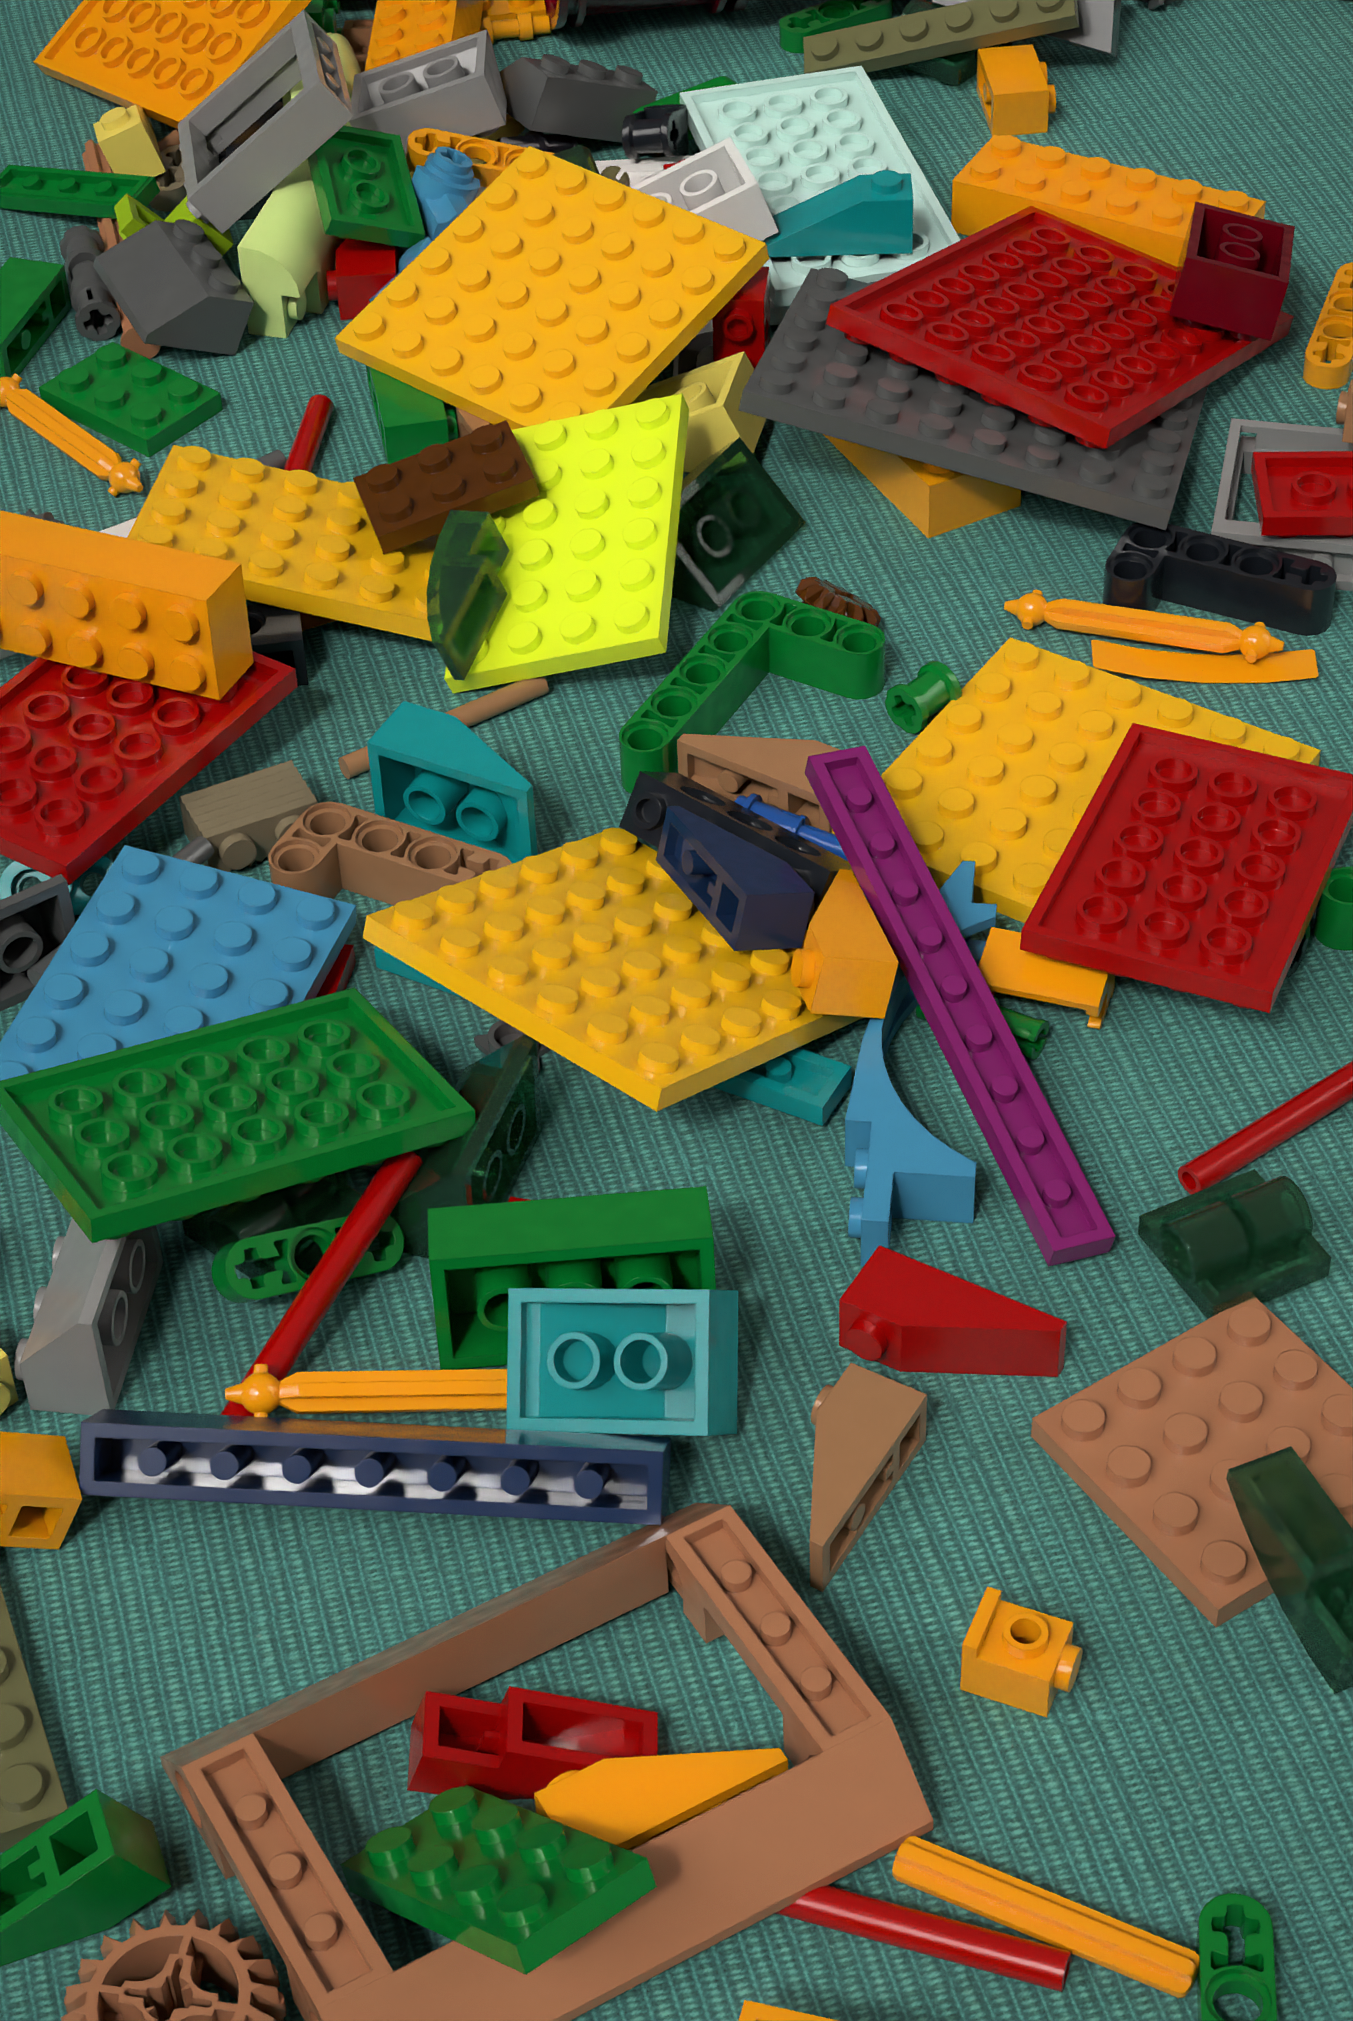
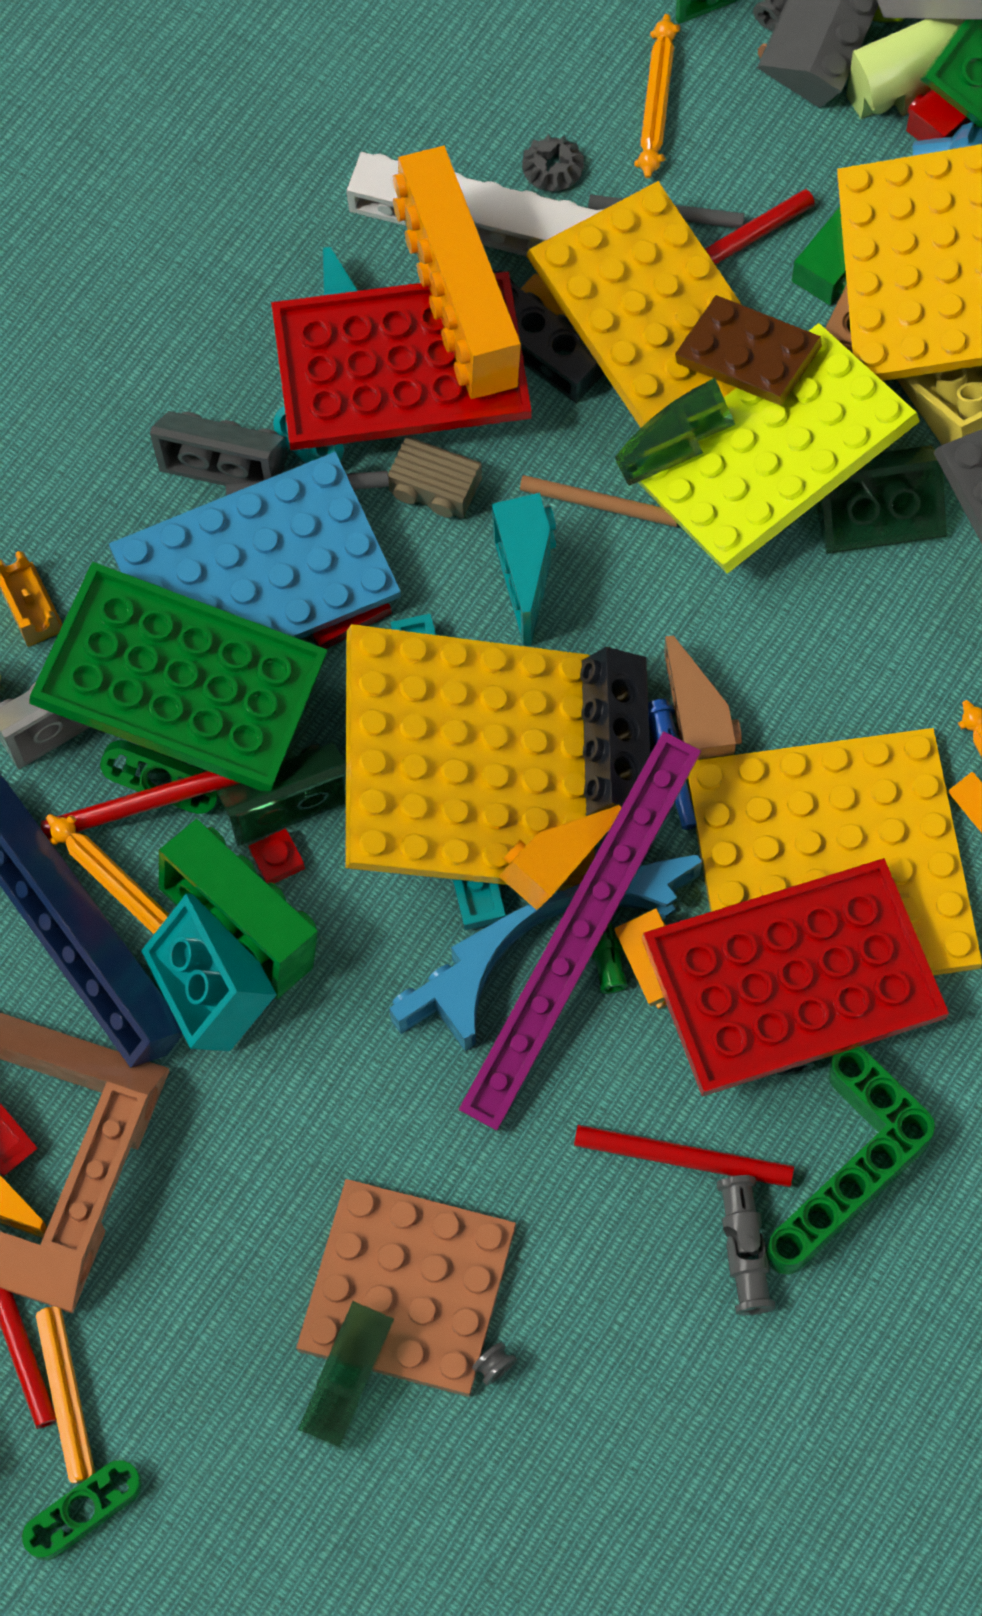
camera: 50 degrees right, 25 degrees up
(131, 399) = (722, 96): green plate -> none
(371, 855) = (449, 551): medium nougat beam -> none
(735, 885) = (566, 765): dark blue slope -> none
(747, 642) = (758, 616): green beam -> none
(836, 599) = (863, 629): reddish brown gear -> none
(862, 1446) = (250, 1118): medium nougat slope -> none
(922, 697) = (836, 723): green bush -> none
(943, 1324) = (363, 1083): red slope -> none
(1018, 1655) = (188, 1261): light orange brick -> none
(1237, 1242) = (542, 1189): clear green plate -> none

